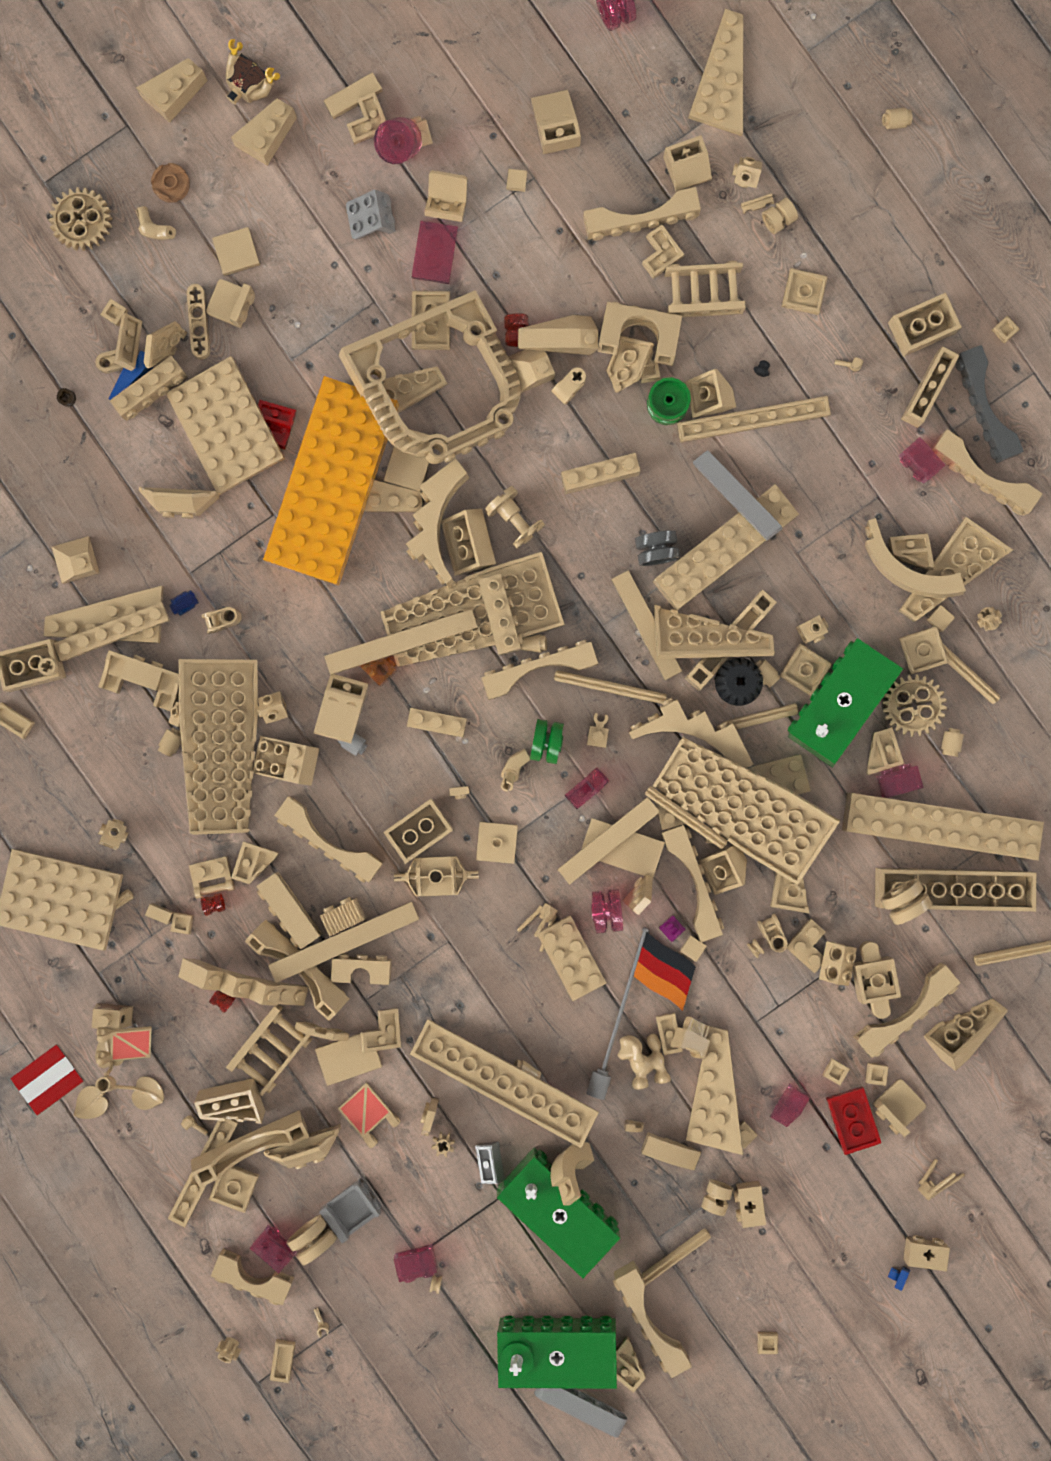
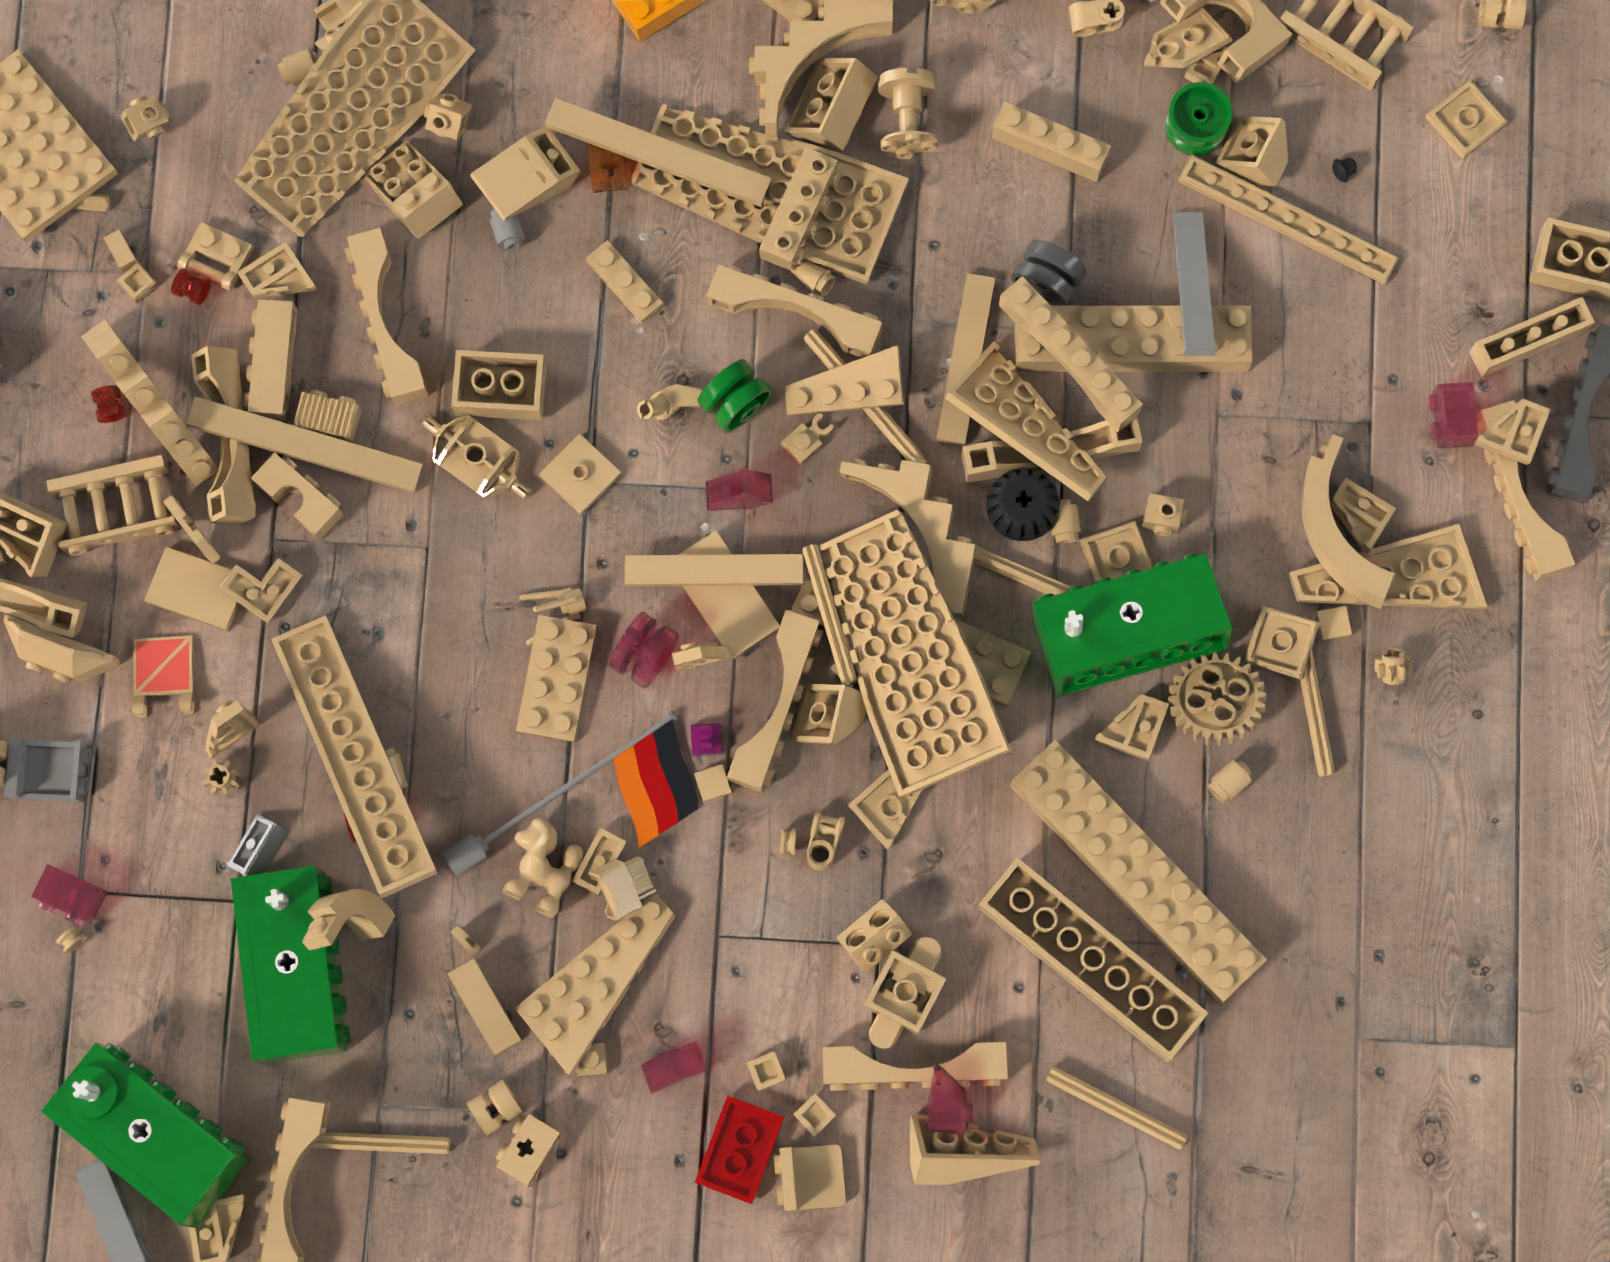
camera: 40 degrees right, 10 degrees down
(459, 792) = (584, 379): tan plate -> none
(602, 687) = (853, 386): none -> tan wing
(705, 584) = (1097, 380): none -> tan arch
(802, 945) = (850, 884): tan plate -> none
(854, 366) = (1460, 248): tan hand -> none
(899, 781) = (1127, 776): clear pink brick -> none
(906, 901) = (1014, 907): tan wheel -> none
(940, 1019) = (947, 1104): none -> clear pink slope
(963, 446) = (1516, 432): none -> tan wing

